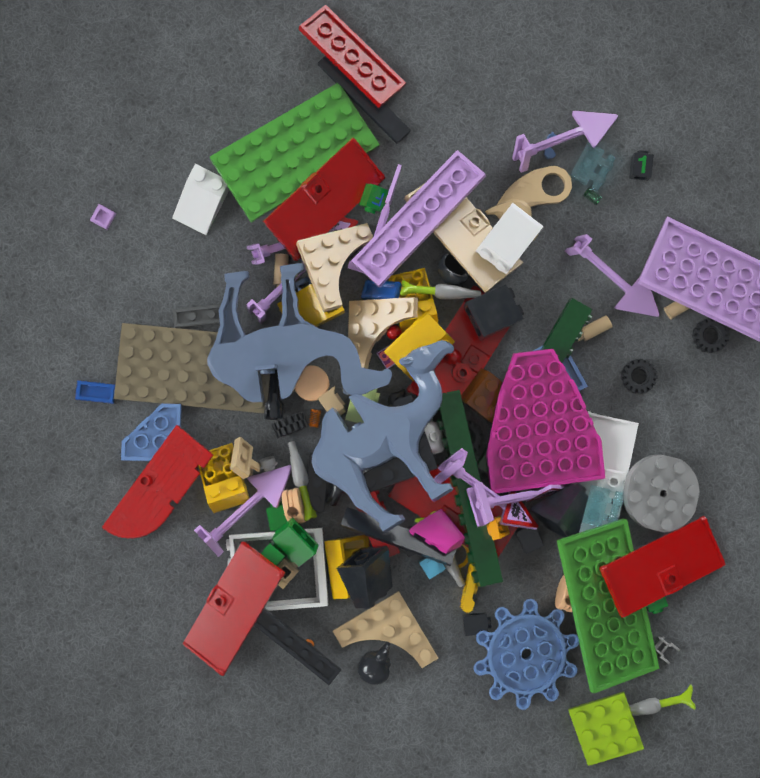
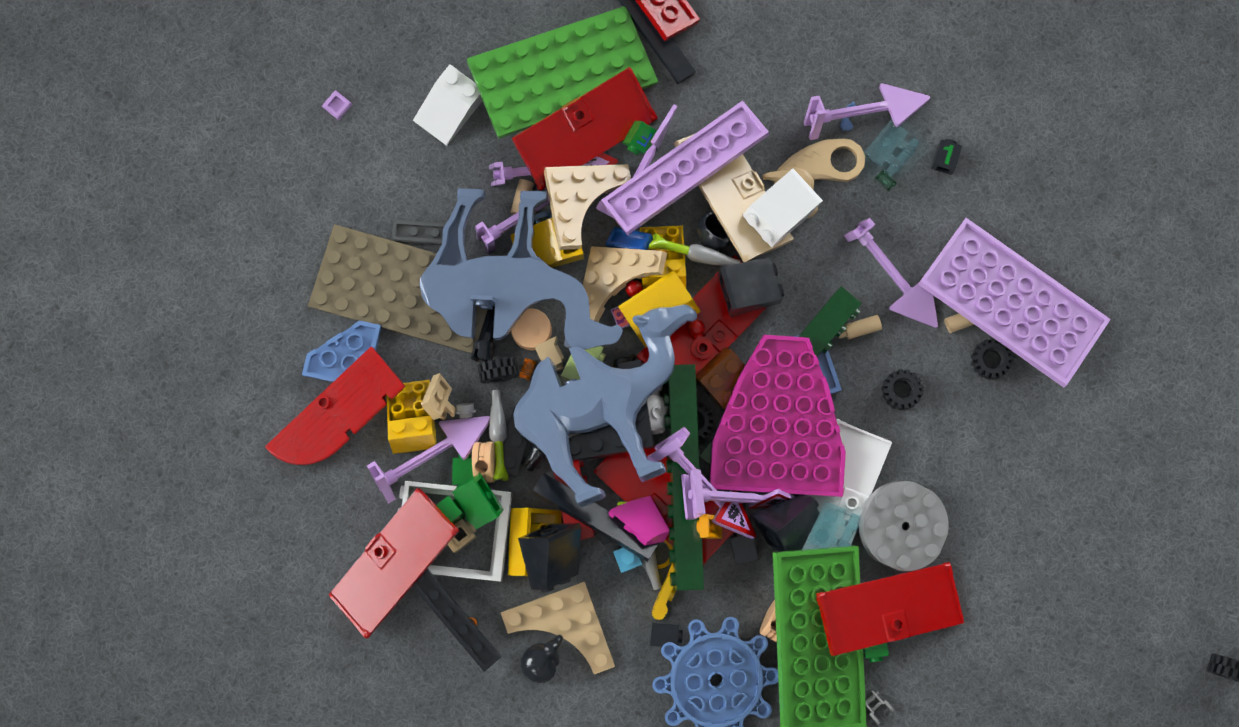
camera: 15 degrees right, 5 degrees down
(95, 392) = (288, 295): blue tile -> none

